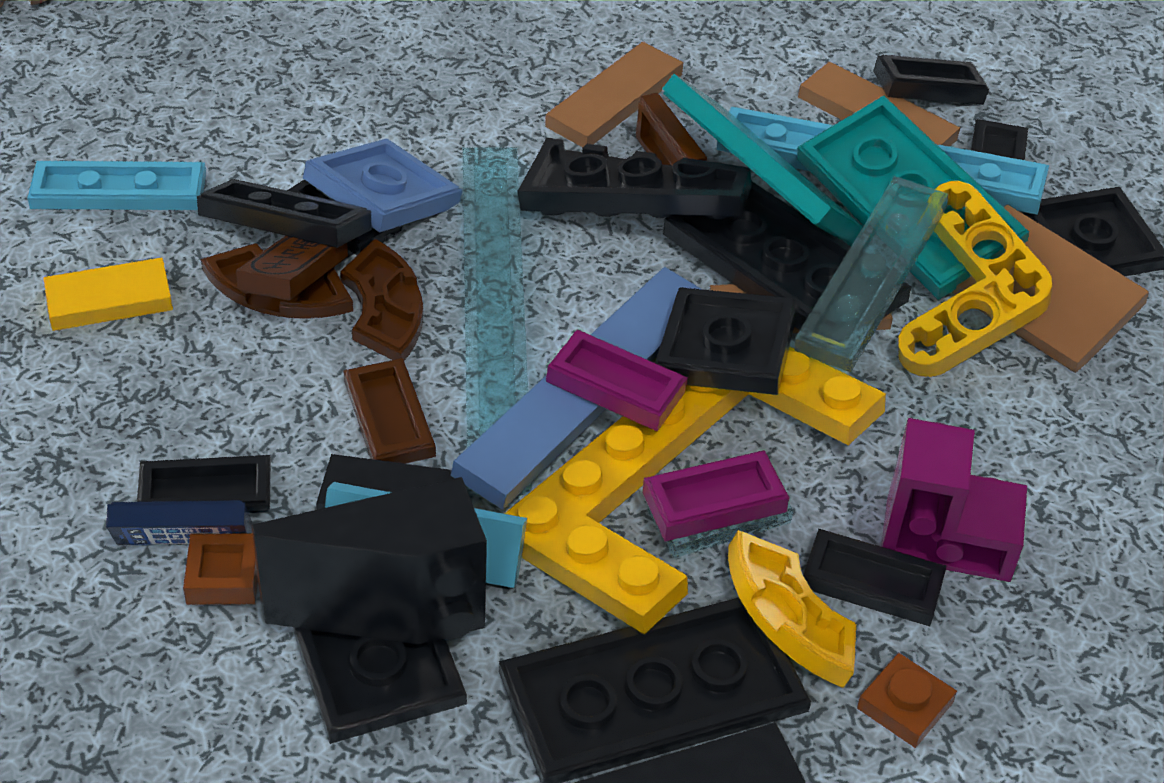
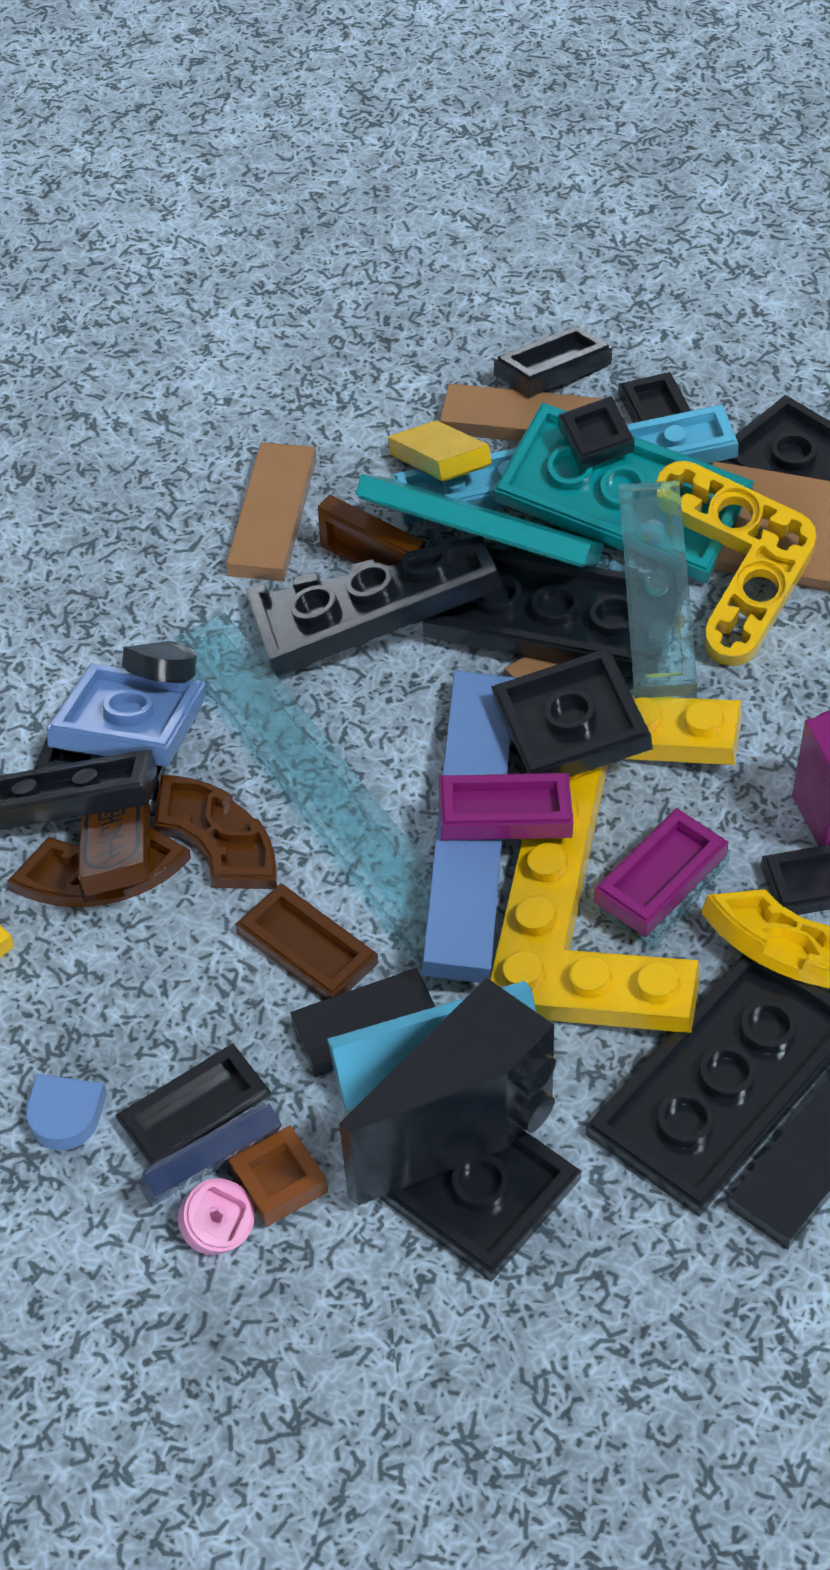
camera: 25 degrees left, 5 degrees up
(108, 440) = (64, 1110): none -> medium blue tile
(151, 573) = (216, 1216): none -> bright pink tile
(436, 158) = (161, 661): none -> black tile
(779, 103) = (440, 450): none -> yellow tile
(911, 135) = (596, 433): none -> black tile

